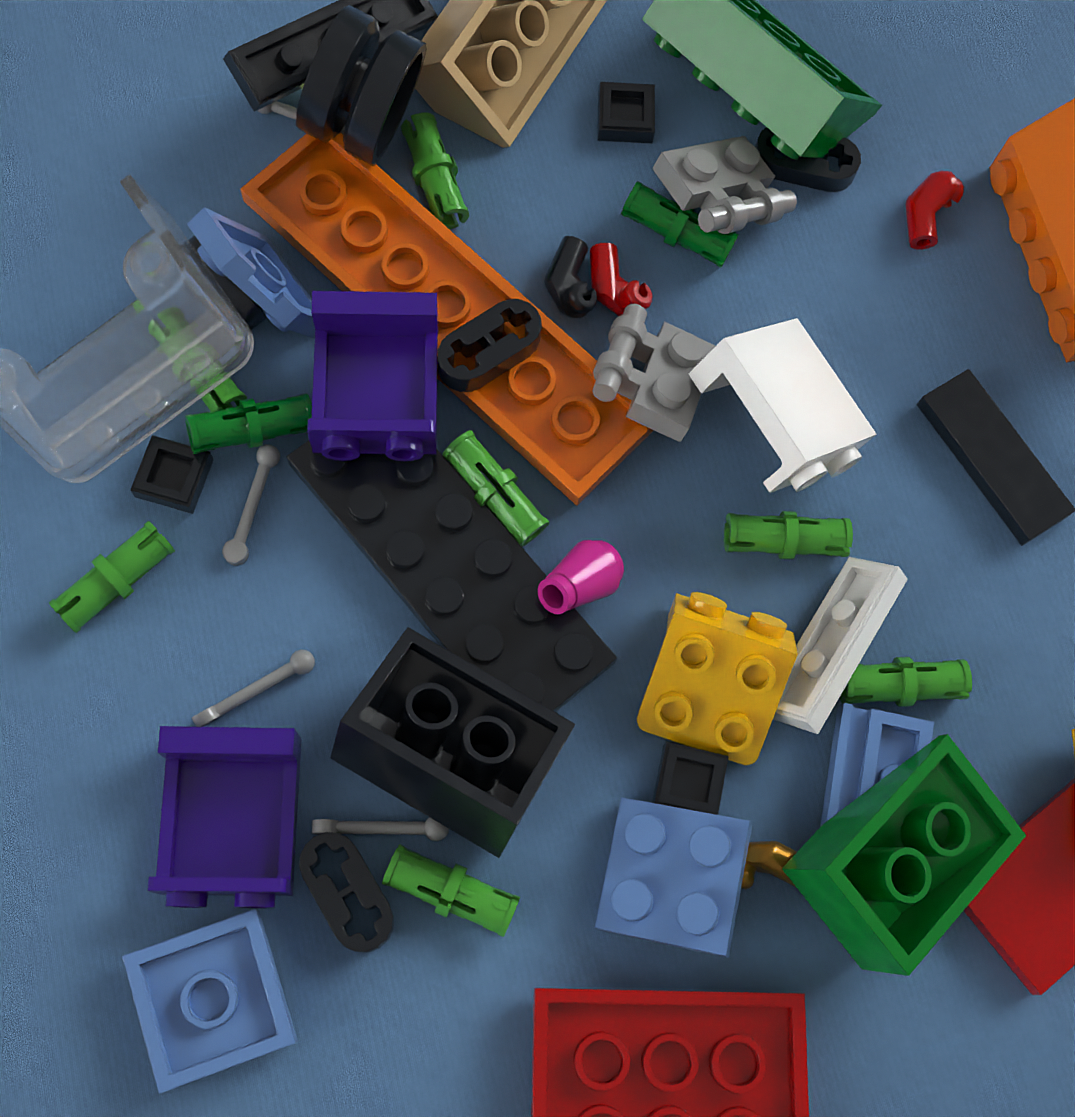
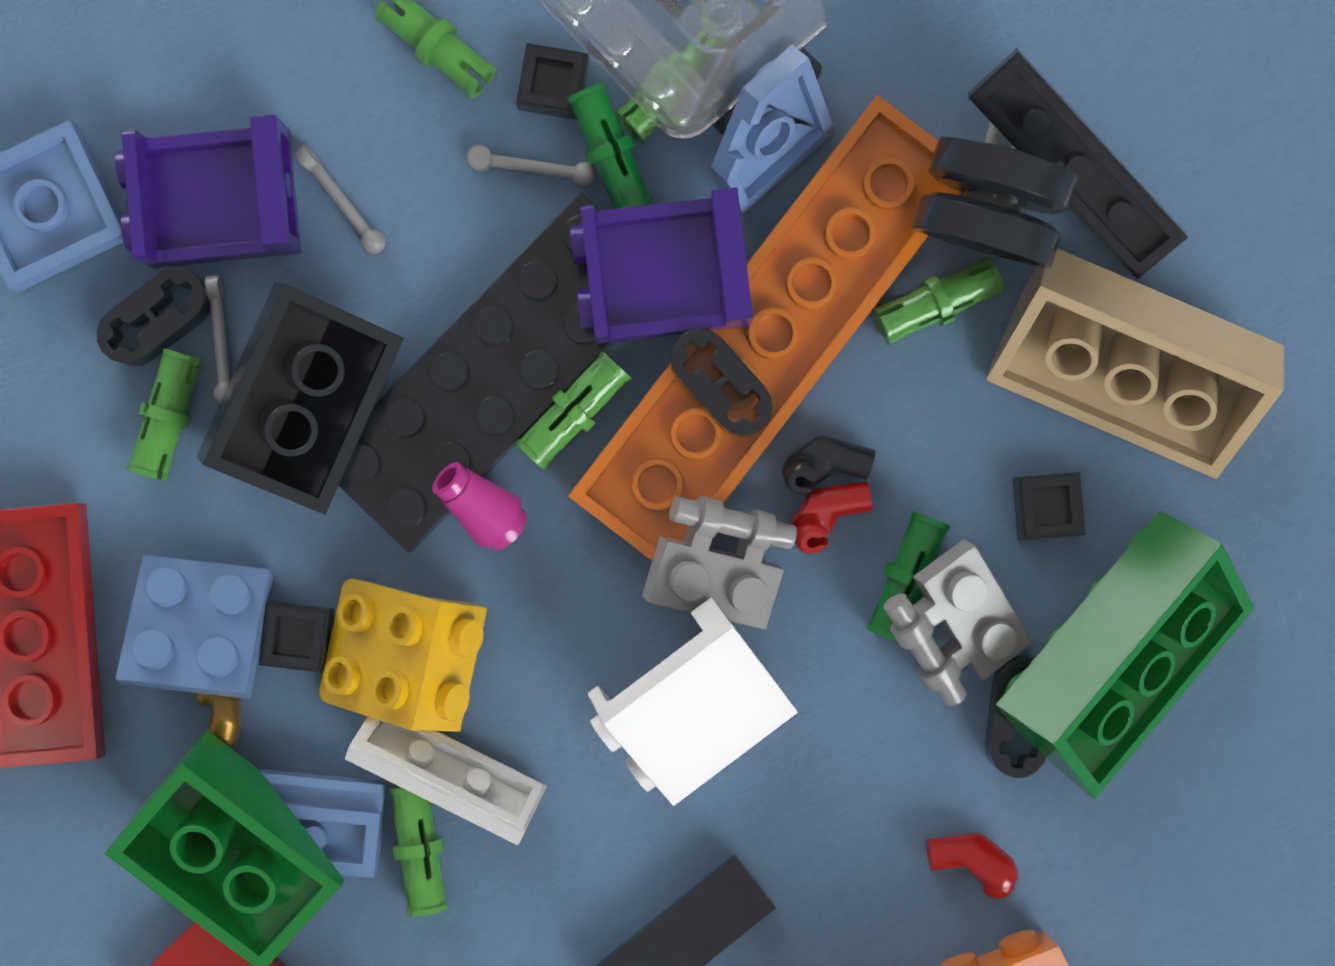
camera: 85 degrees right, 15 degrees up
(788, 535) = (561, 719): bright green pin -> none

